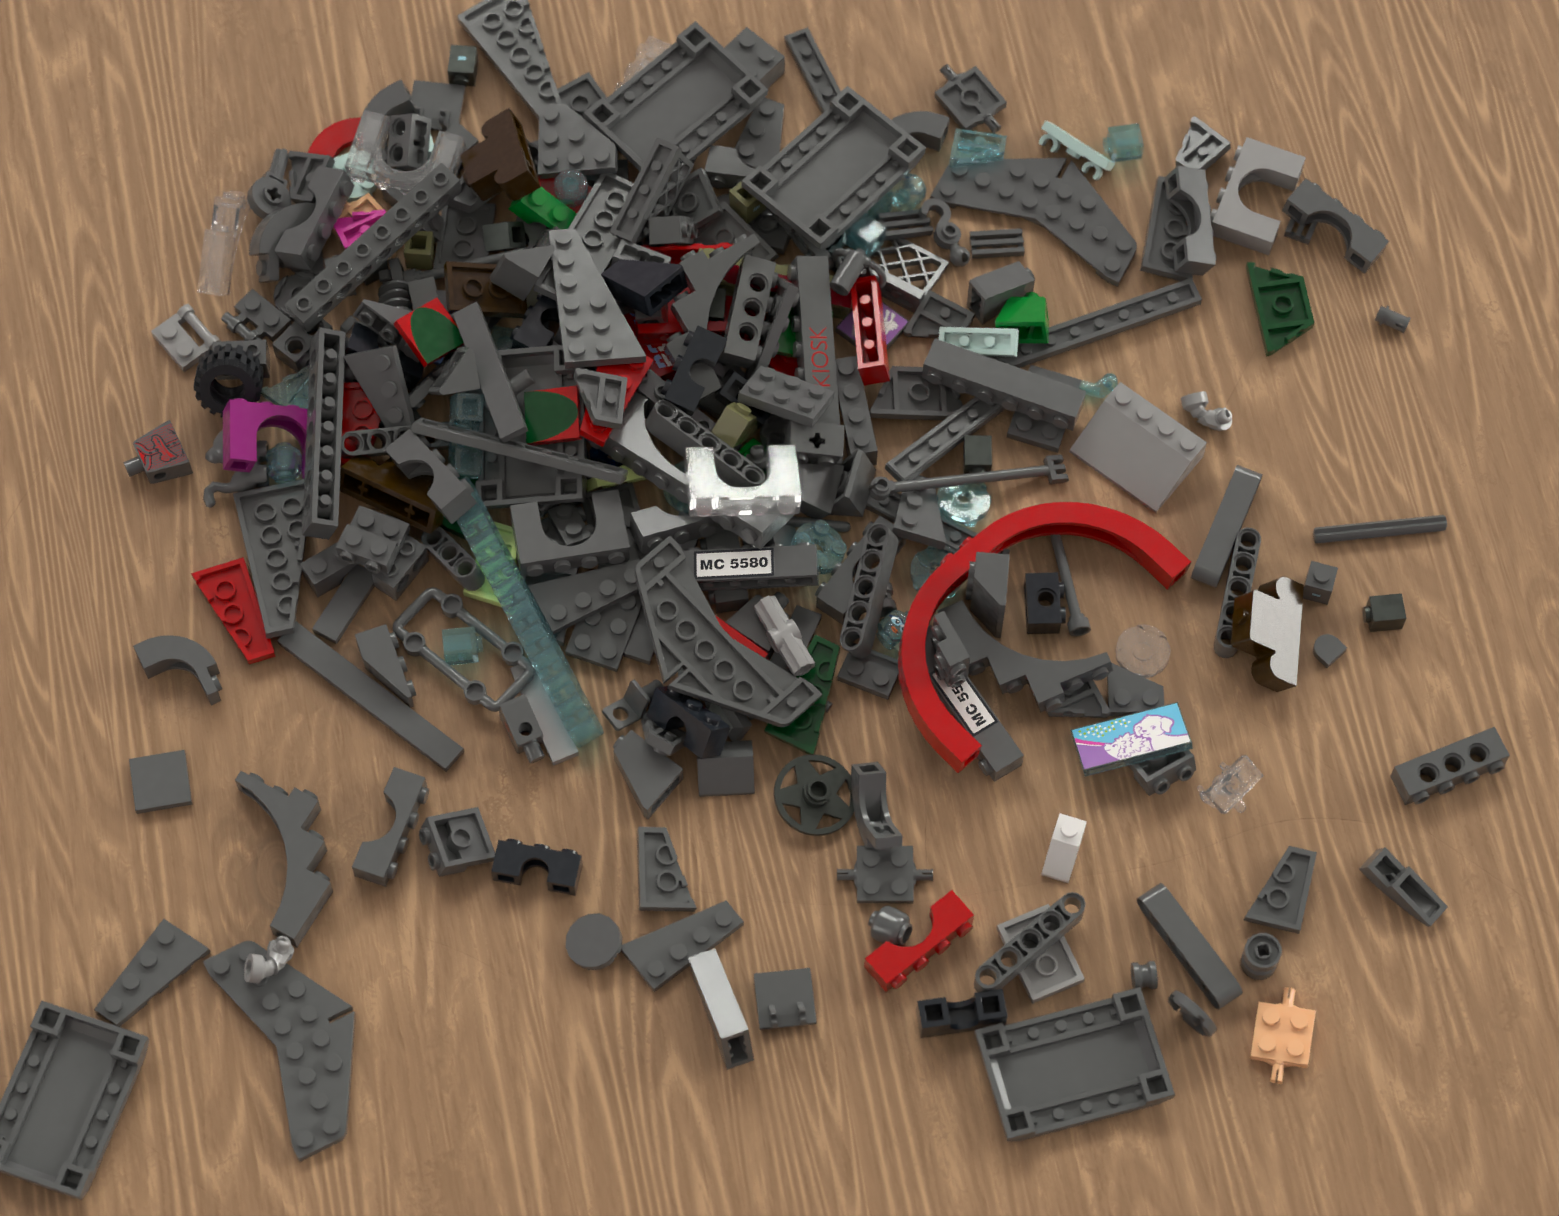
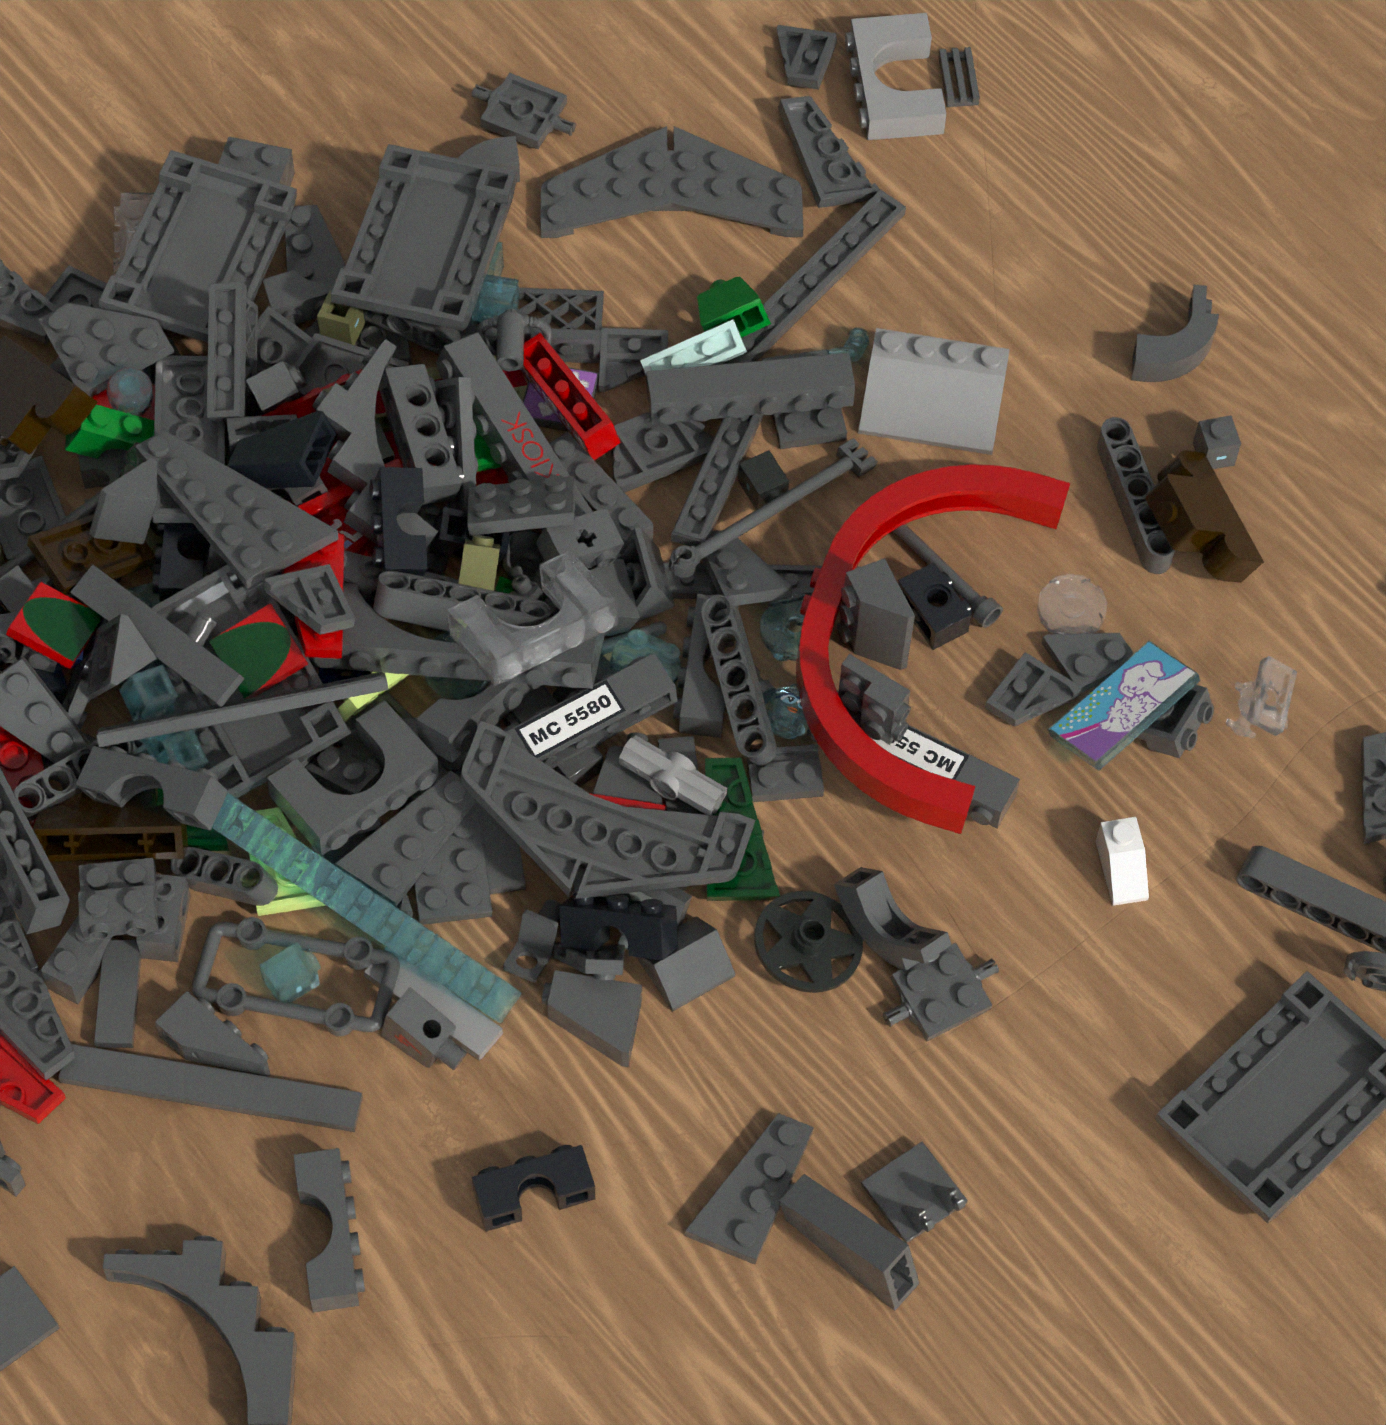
camera: 30 degrees left, 5 degrees down
(456, 841) = (418, 1206): dark grey plate -> none
(504, 236) = (75, 484): pearl dark grey brick -> none
(593, 941) = (652, 1240): dark grey tile -> none
(659, 875) = (683, 1125): dark grey wing -> none
(812, 67) = (328, 155): dark grey tile -> none
(890, 926) = (985, 1047): dark grey head -> none
(892, 963) = (1013, 1085): red arch -> none
(903, 220) = (529, 265): dark grey tile -> none
(908, 192) = (517, 236): clear light blue head -> none
(942, 1017) = (1114, 1116): black arch -> none
(946, 233) = (582, 261): dark grey piece -> none
(960, 512) = (790, 547): clear light blue plate -> none
(976, 148) = (562, 157): clear light blue wing -> none
(991, 290) = (675, 294): dark grey slope -> none
(996, 239) = (640, 246): dark grey tile -> none
(1013, 670) = (990, 684): dark grey arch -> none
(1036, 932) = (1153, 1000): dark grey beam -> none
(1052, 970) = (1169, 992): light grey plate -> none
(1076, 149) = (671, 111): light aqua plate -> none
(1123, 143) = (720, 83): clear light blue brick -> none
(1144, 975) = (1298, 958): dark grey wheel -> none
(1188, 192) = (827, 102): dark grey arch -> none
(1216, 419) = (997, 325): light grey arm -> none
(1226, 526) = (1080, 431): dark grey beam -> none
(1280, 306) = (990, 177): dark green wing -> none
(1312, 204) = (1034, 73): dark grey arch -> none
(1328, 649) = (1267, 510): dark grey tile -> none
(1339, 502) = (1180, 353): none -> dark grey arch
(1380, 529) = (1240, 360): dark grey axle -> none
(1384, 612) = (1304, 442): pearl dark grey brick -> none
(1392, 319) = (1116, 139): dark grey pin -> none

